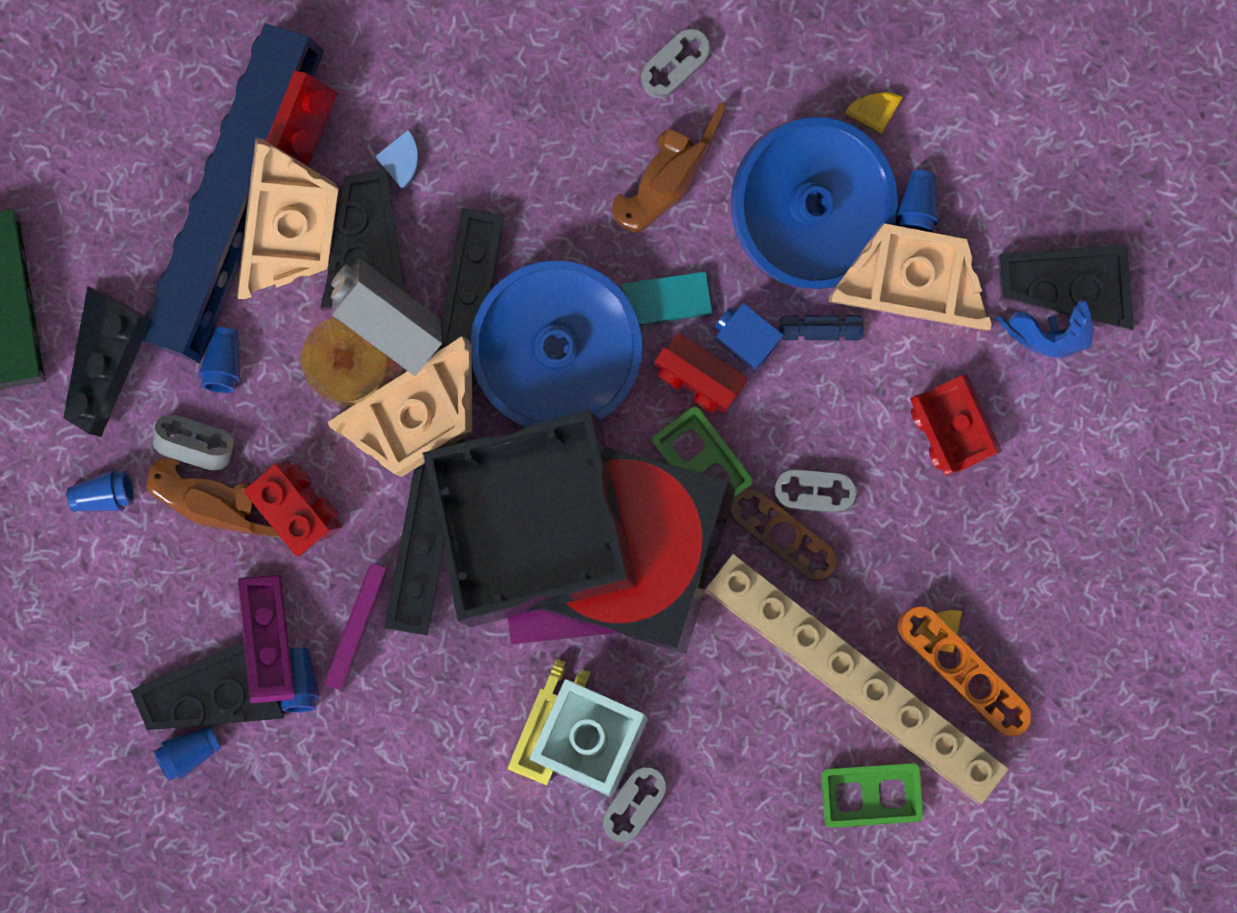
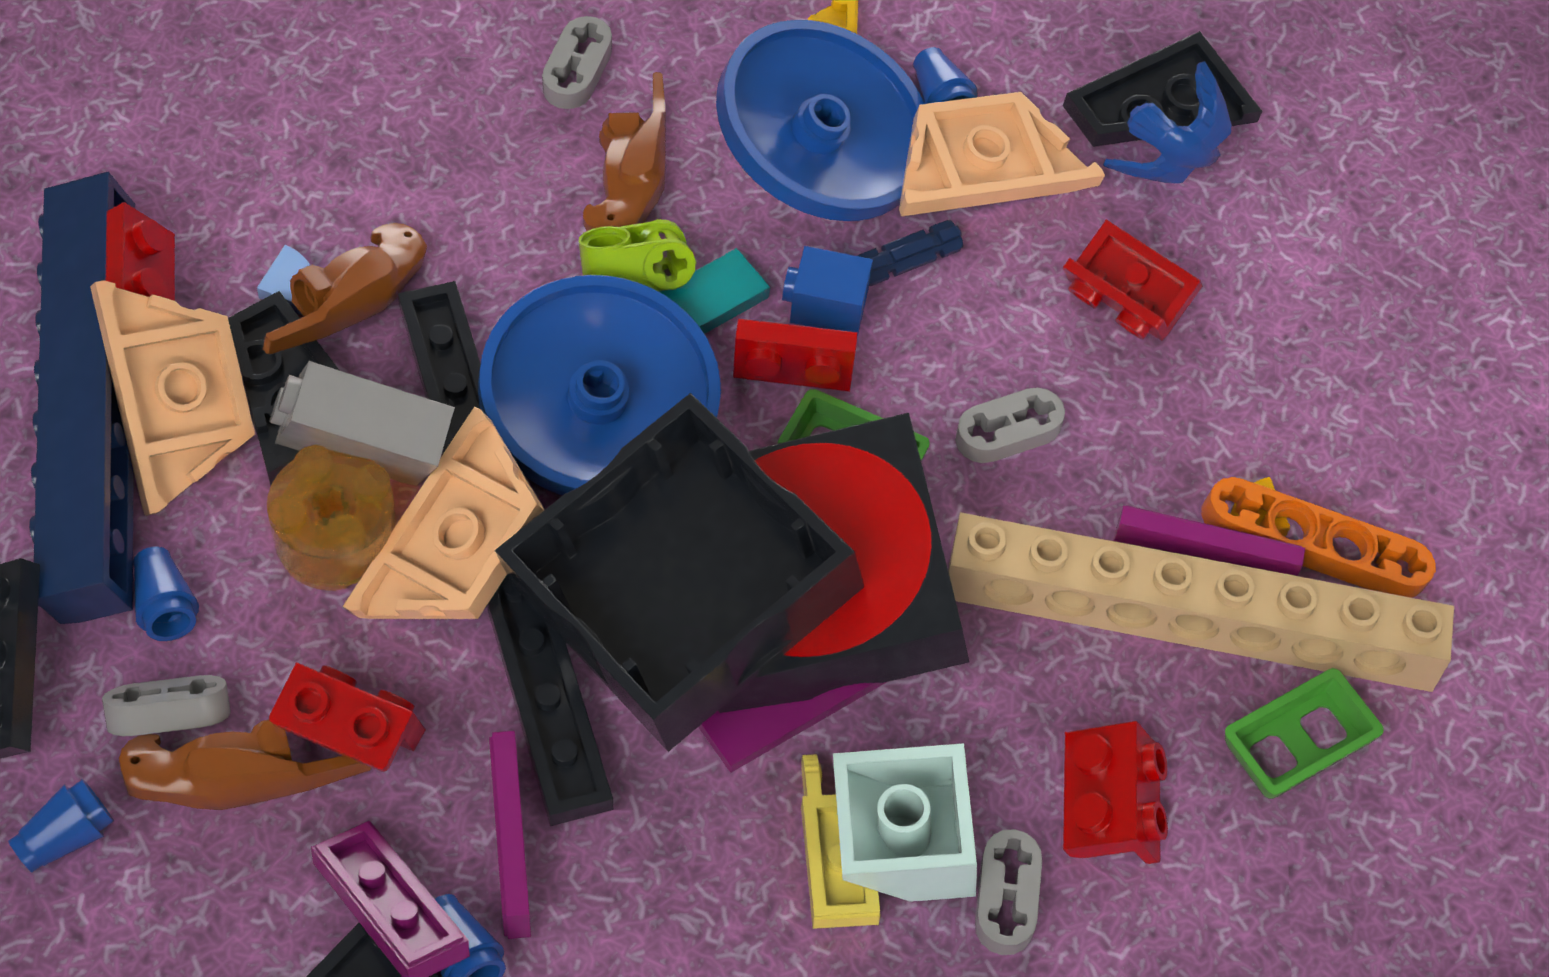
camera: 30 degrees left, 25 degrees down
(437, 188) = (350, 286): none -> dark orange animal
(626, 254) = (637, 254): none -> lime piece
(732, 776) = (1113, 792): none -> red bracket
(802, 562) = (1020, 474): reddish brown beam -> none
(887, 644) = (1206, 541): none -> magenta tile

